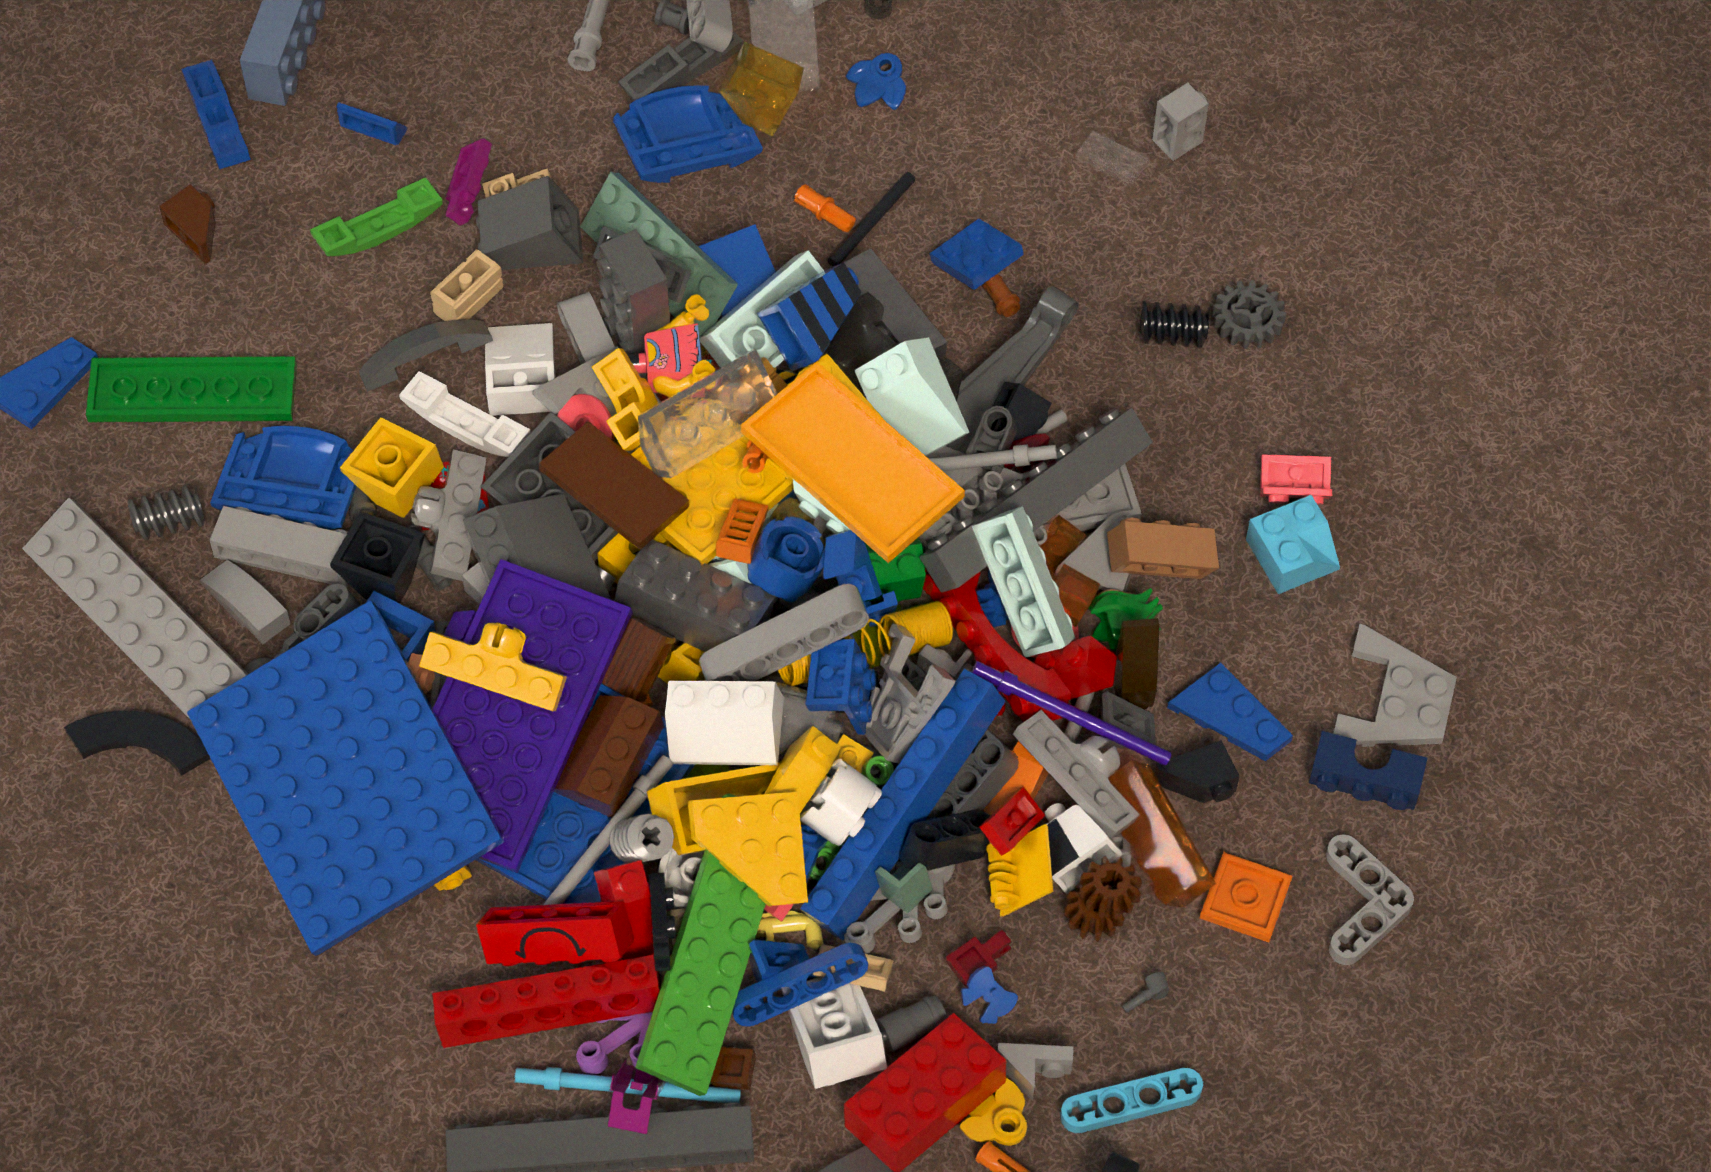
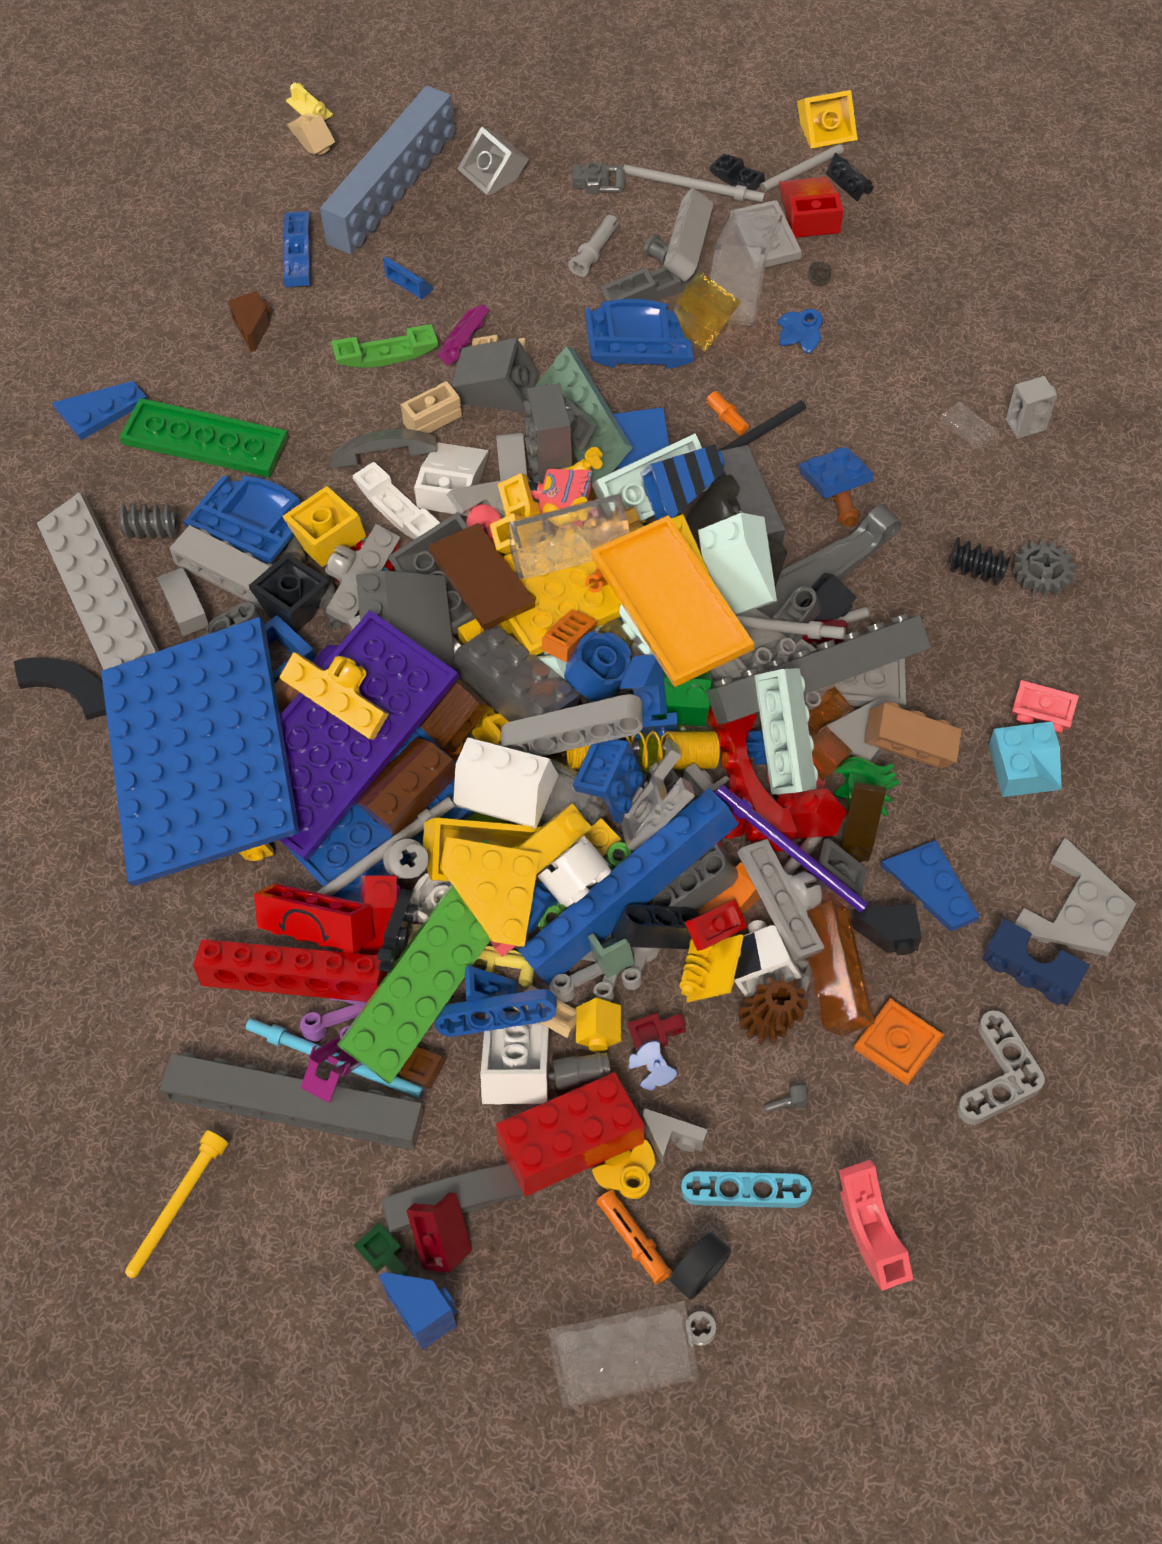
camera: 20 degrees right, 0 degrees up
(915, 966) = (598, 1024): none -> yellow brick
(1276, 1101) = (871, 1228): none -> coral arch

